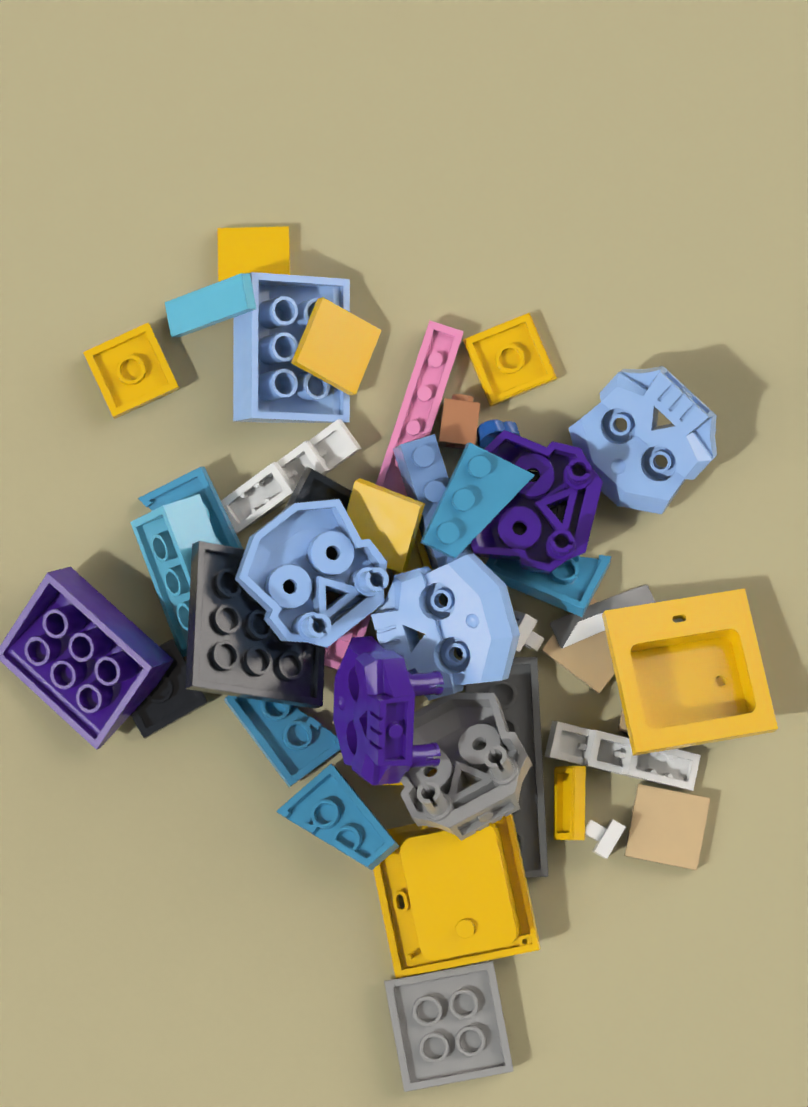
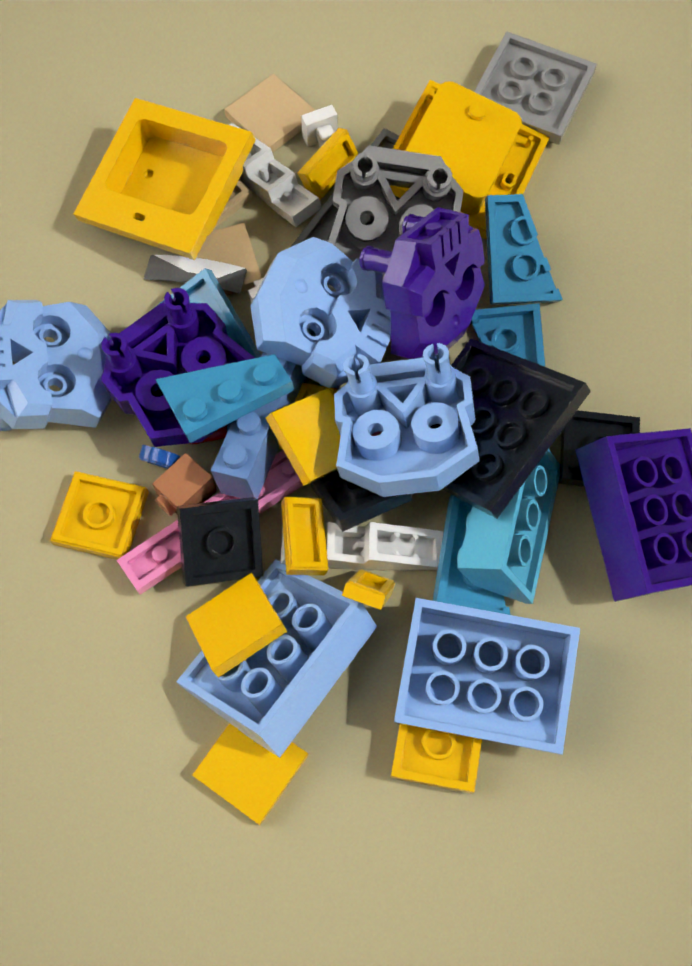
camera: 140 degrees left, 15 degrees down
(127, 438) = (488, 675): none -> light blue slope
(210, 305) = (320, 740): medium azure tile -> none
(255, 439) = (369, 589): none -> yellow tile
(334, 446) = (304, 536): none -> yellow tile
(393, 397) = (220, 541): none -> black plate

